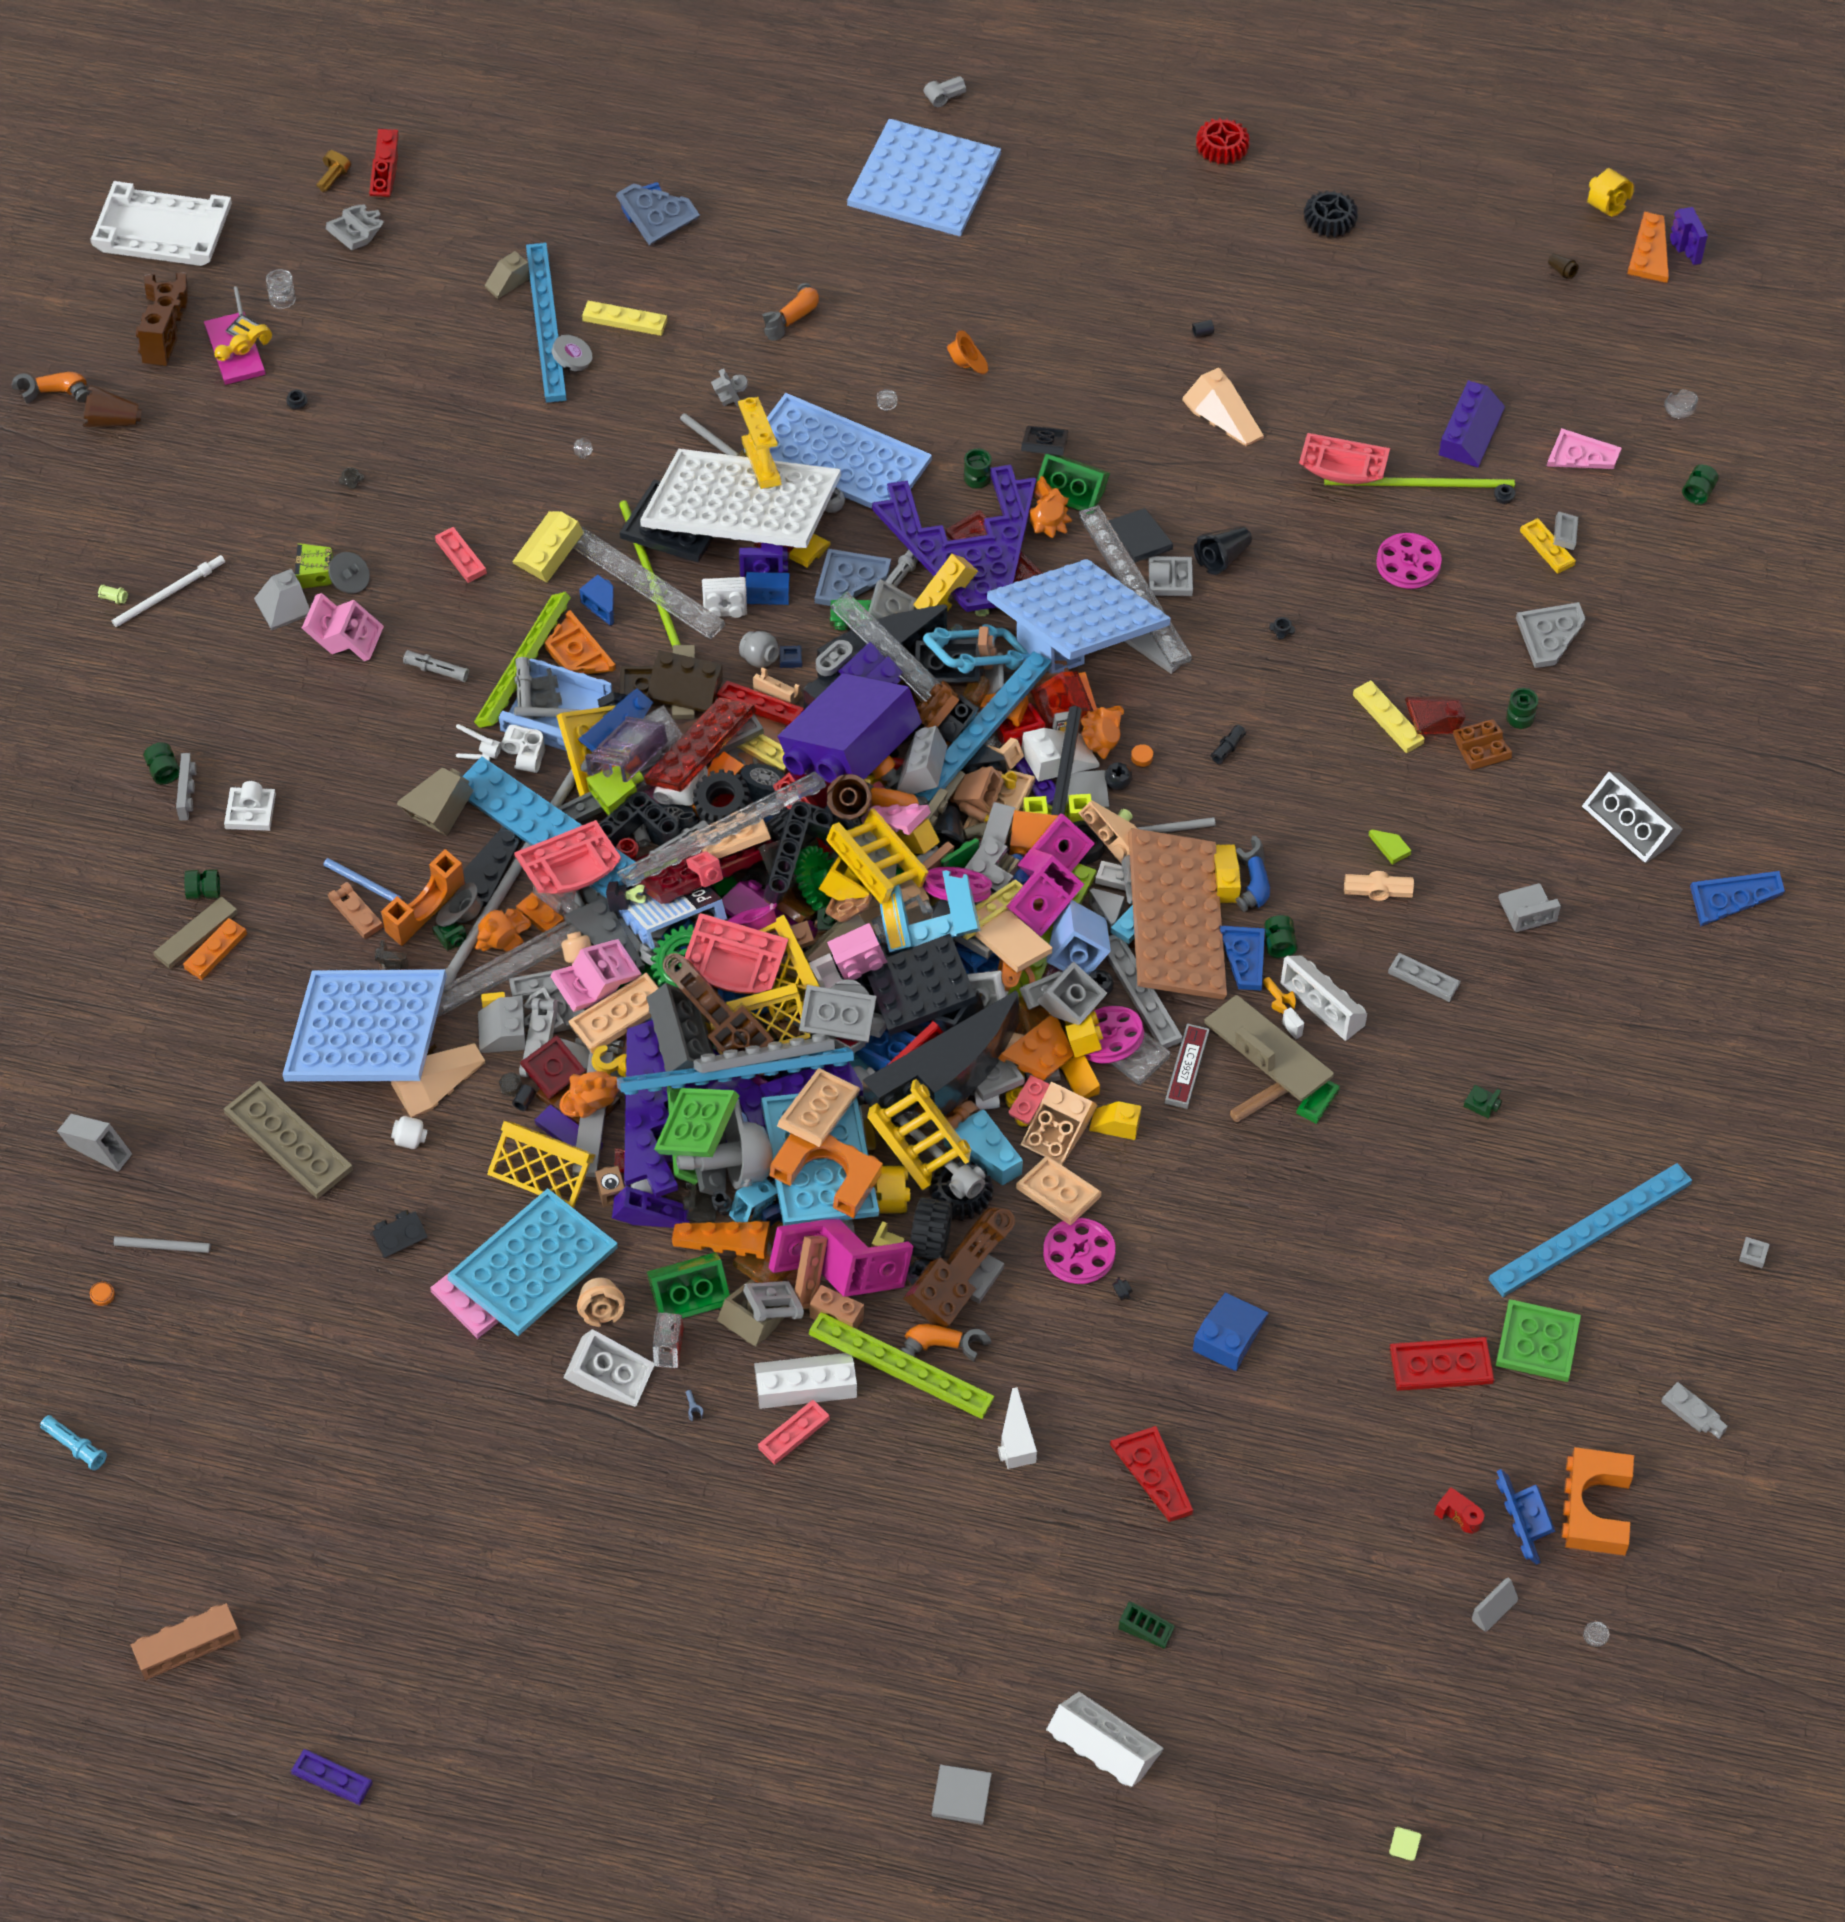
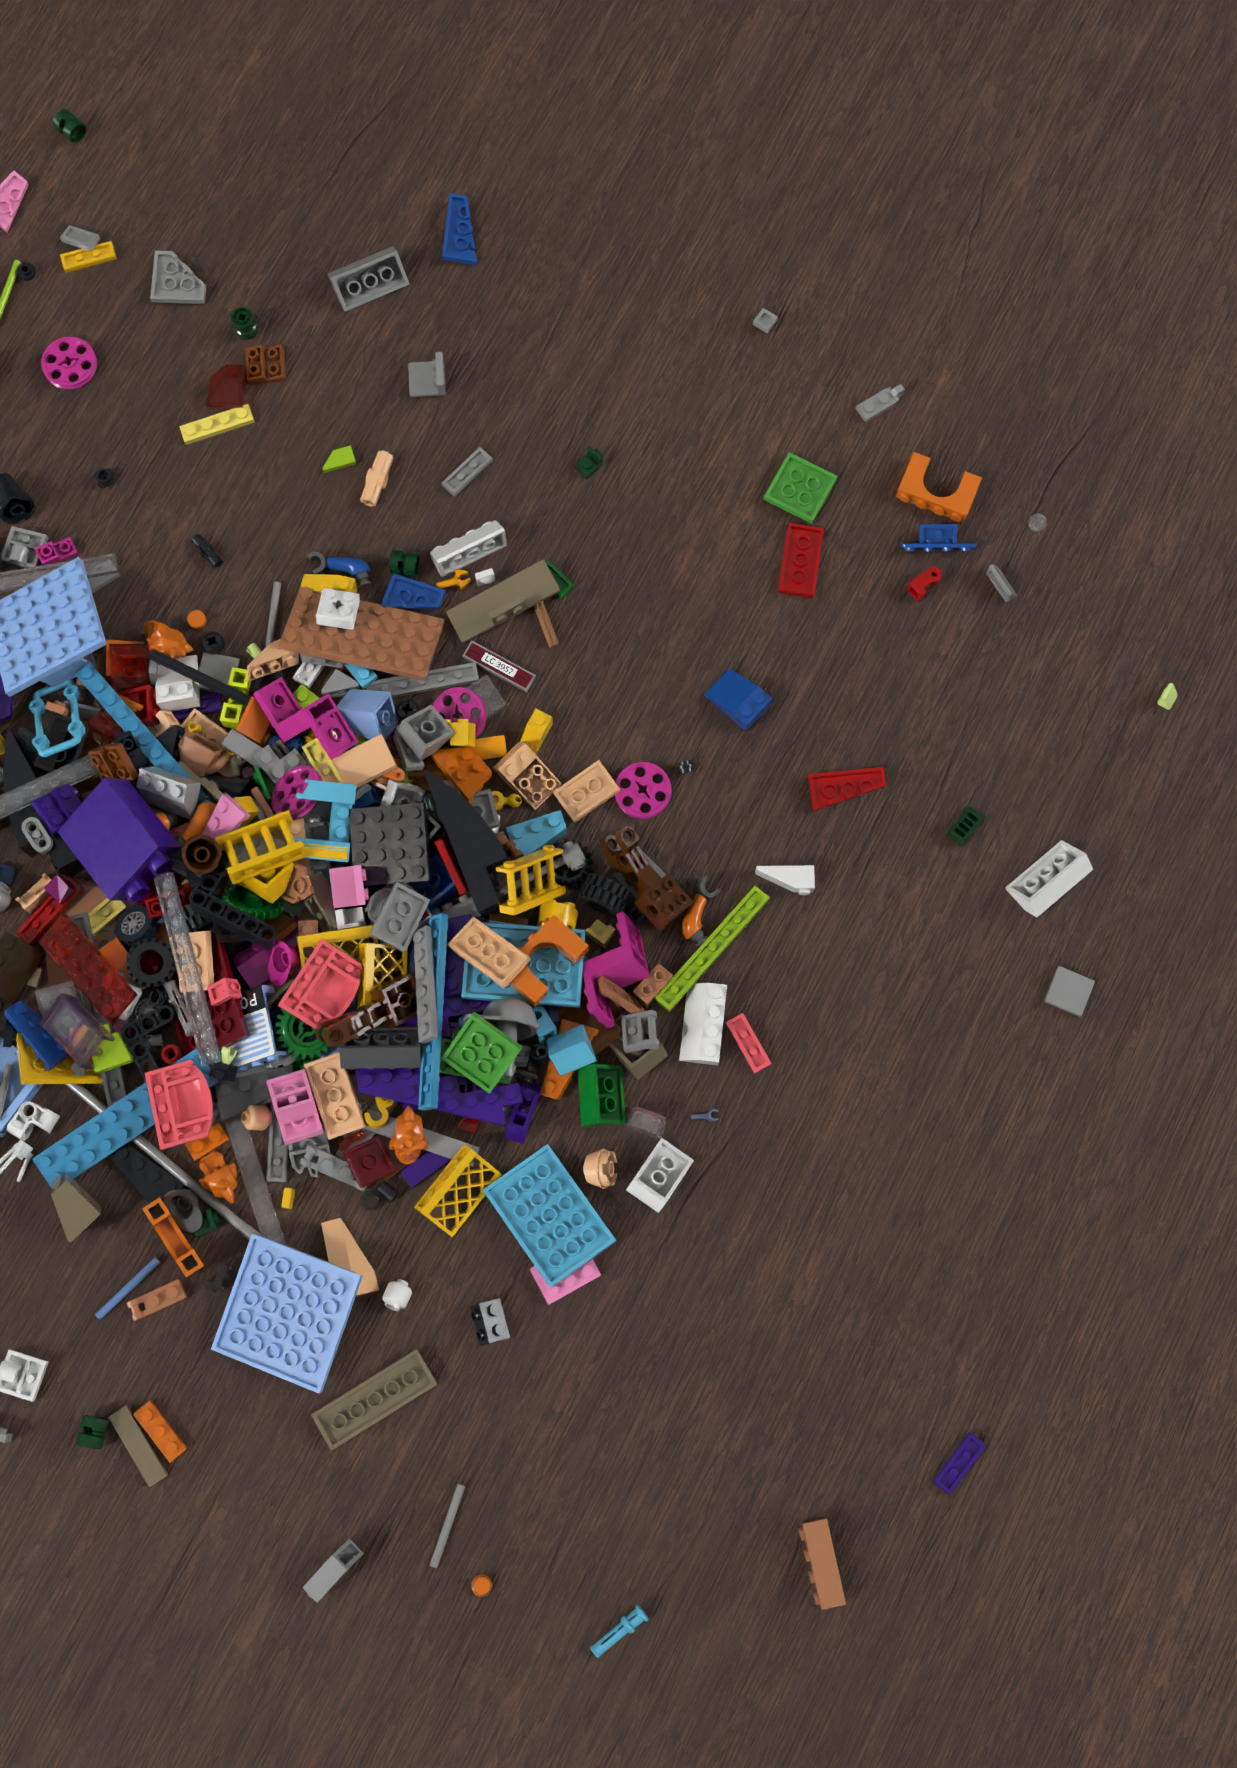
camera: 75 degrees left, 20 degrees up
(502, 1025) = (313, 1196): light grey slope -> none
(574, 1042) = (345, 1144): none -> clear red tile
(608, 1184) = (491, 1138): medium nougat brick -> none
(730, 1231) = (571, 1050): none -> medium azure slope
(784, 701) = (59, 889): none -> magenta slope
(983, 691) = (104, 725): none -> clear red plate
(1029, 1099) = (504, 791): coral bracket -> none
(1174, 604) = (57, 552): none -> dark pink slope
(1195, 877) = (337, 608): none -> white brick
(1590, 1230) = (716, 424): dark azure plate -> none

